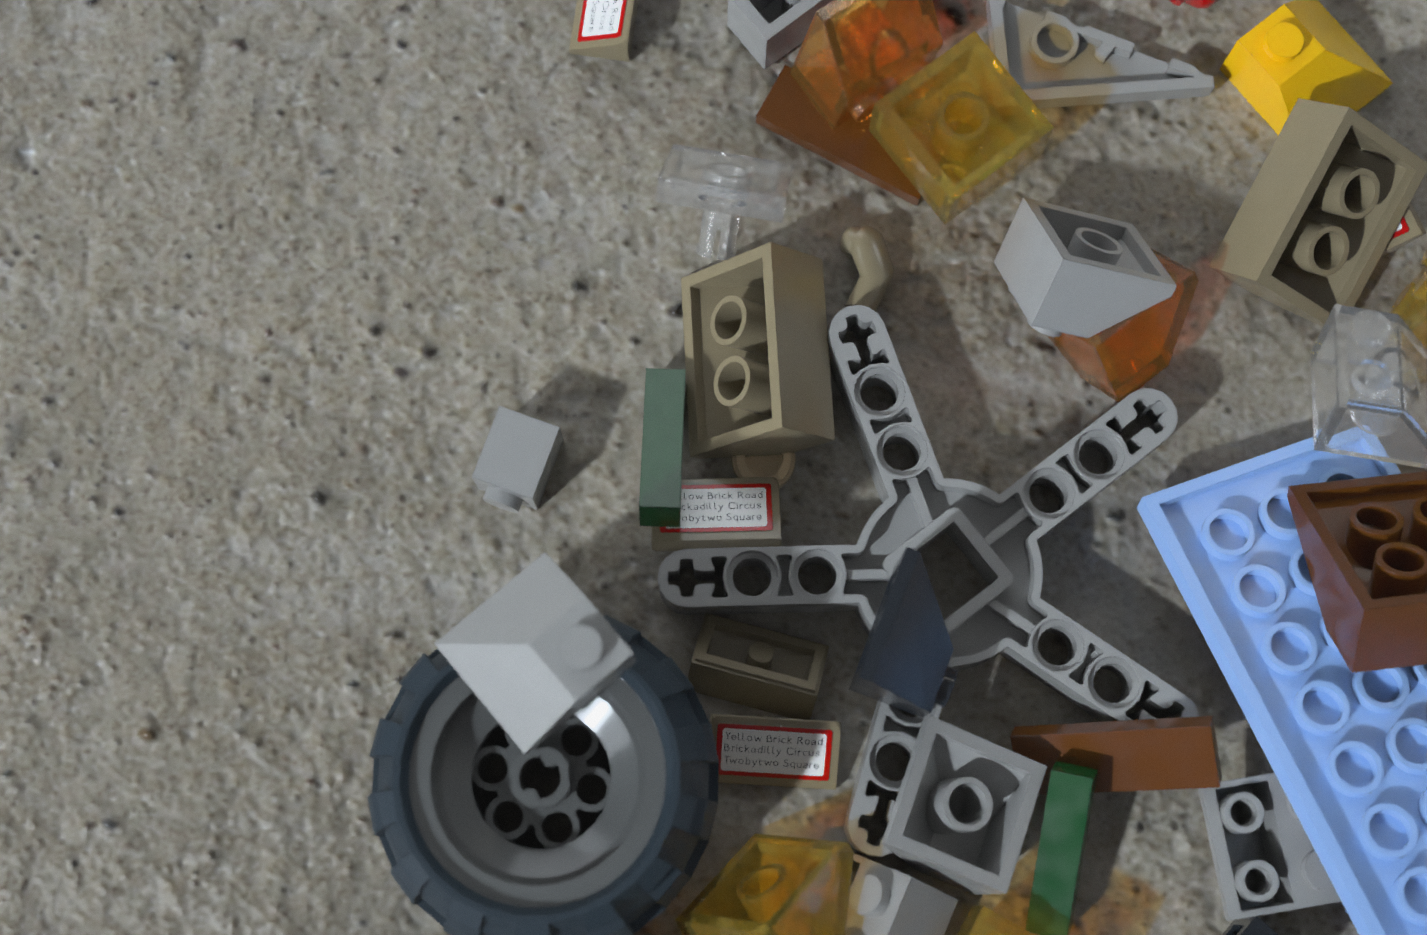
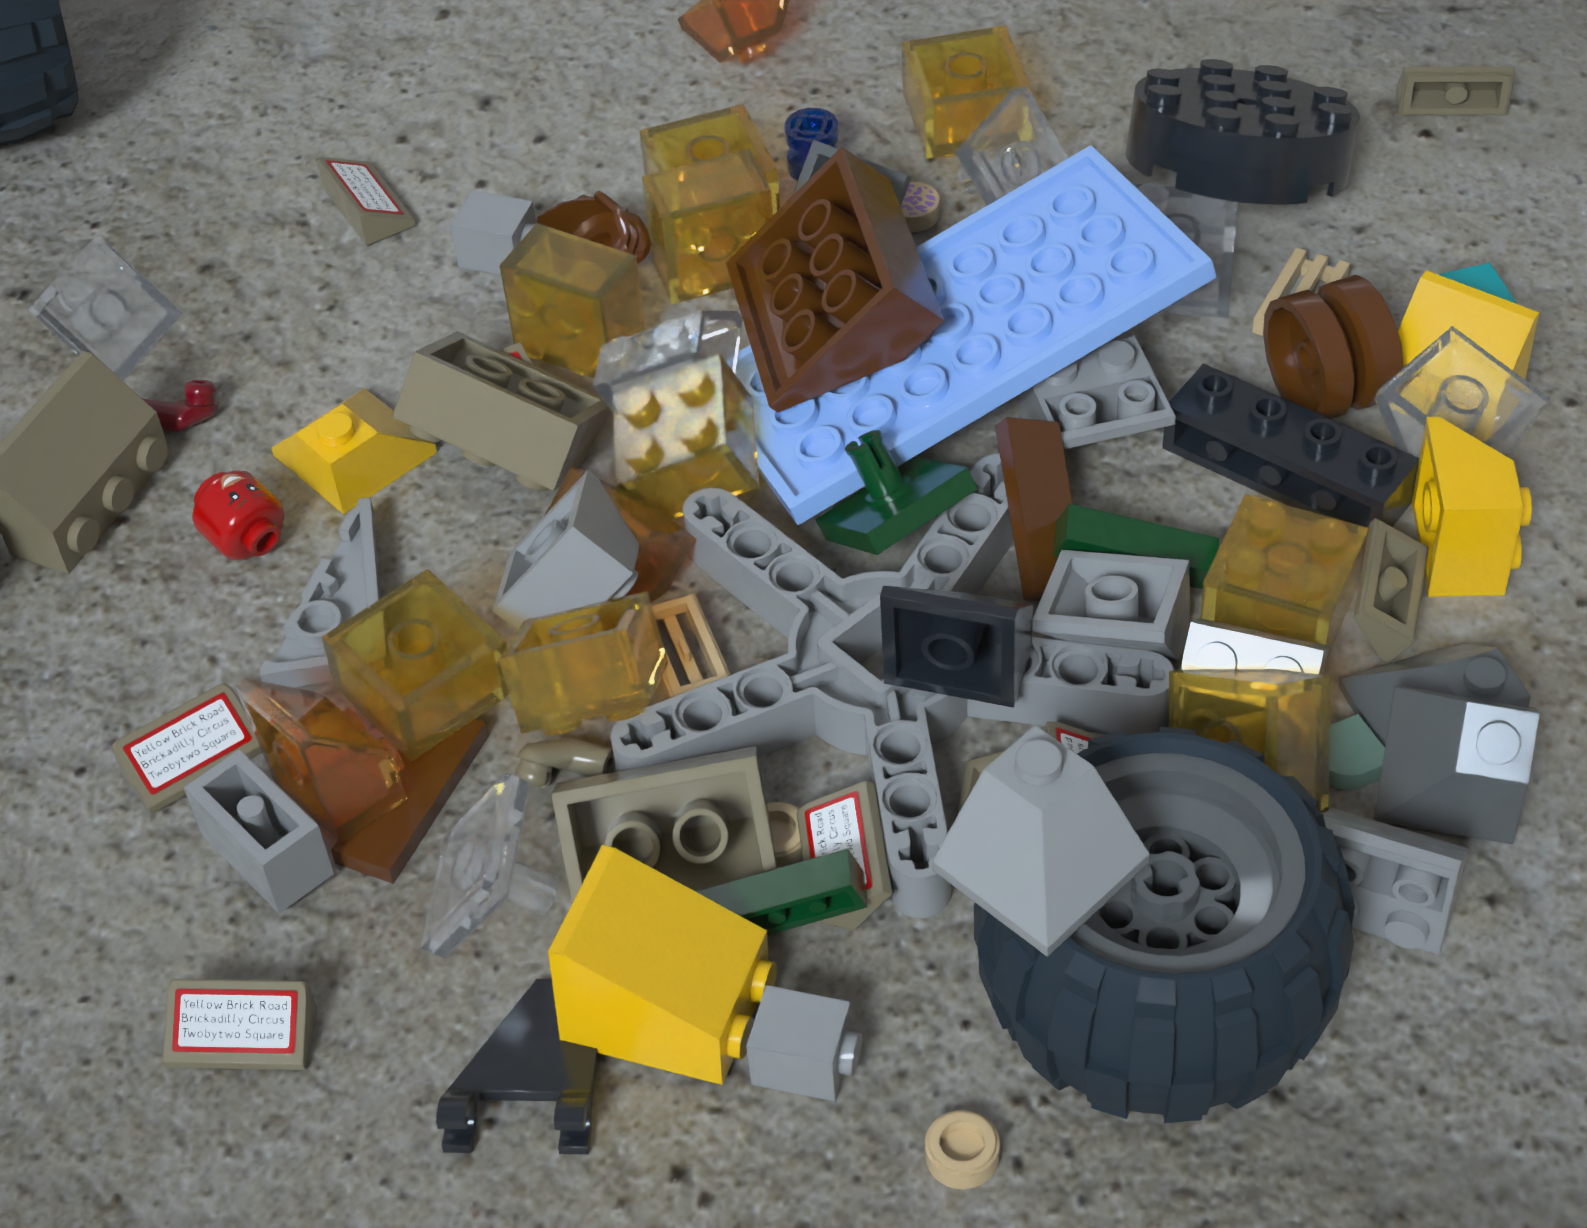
camera: 90 degrees left, 30 degrees down
(409, 588) = (962, 1149): none -> tan tile
(548, 240) = (525, 1064): none -> black flag
(588, 337) = (657, 971): none -> yellow slope
(942, 281) = (584, 664): none -> clear yellow brick
(942, 403) = (667, 613): none -> tan tile
(1139, 605) = (893, 496): none -> dark green tile
(1250, 396) = (685, 436): none -> clear yellow brick

